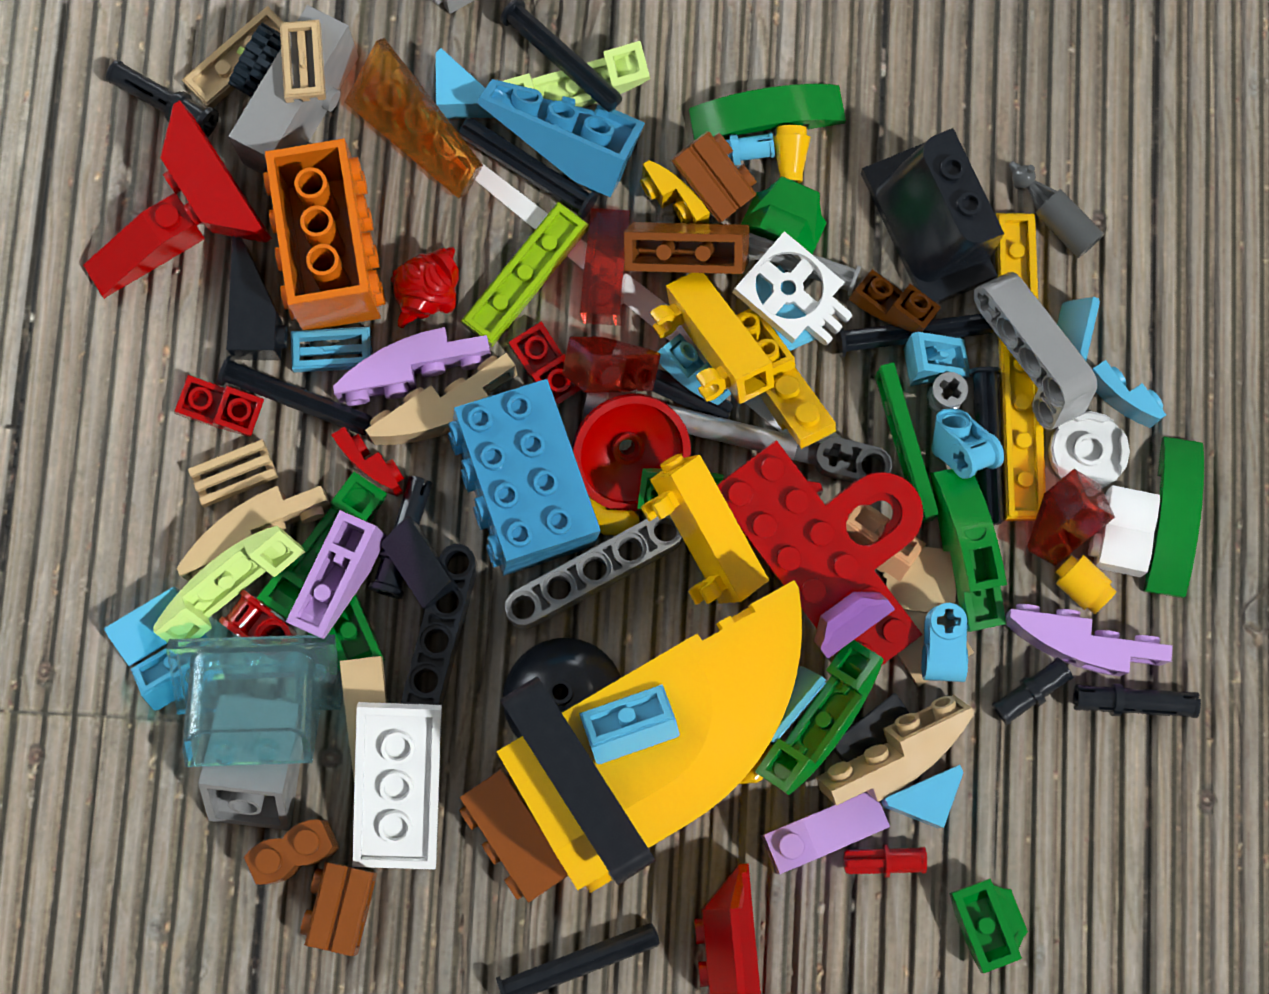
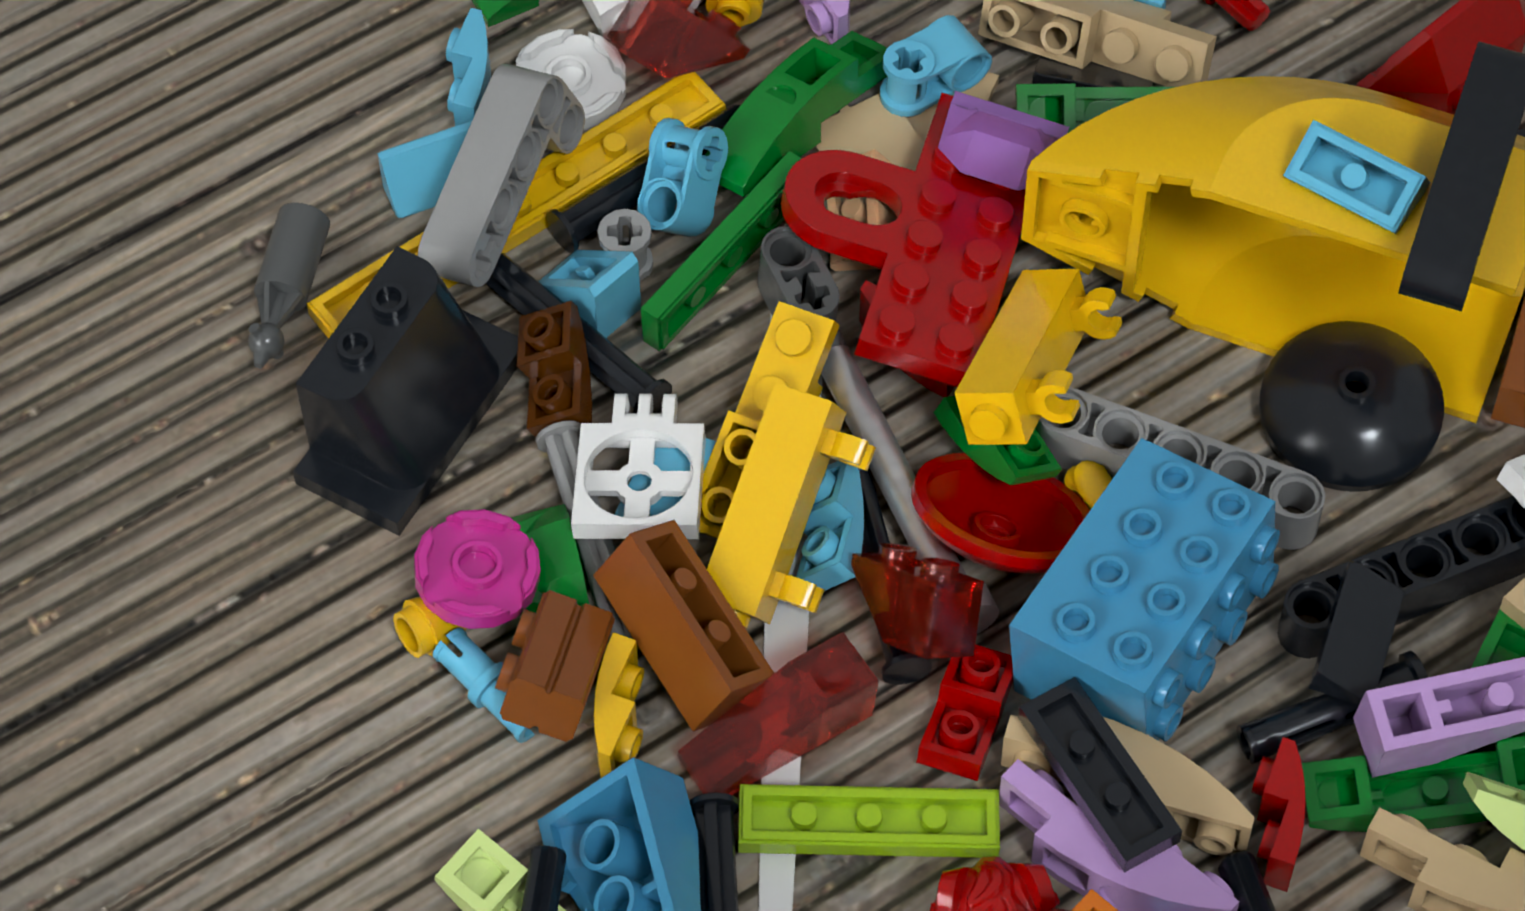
camera: 125 degrees left, 20 degrees down
(443, 371) = (1100, 774): none -> black plate
(768, 108) = (411, 686): green slope -> none
(796, 174) = (476, 569): none -> dark pink tile
(824, 832) = (1262, 45): lavender slope -> none

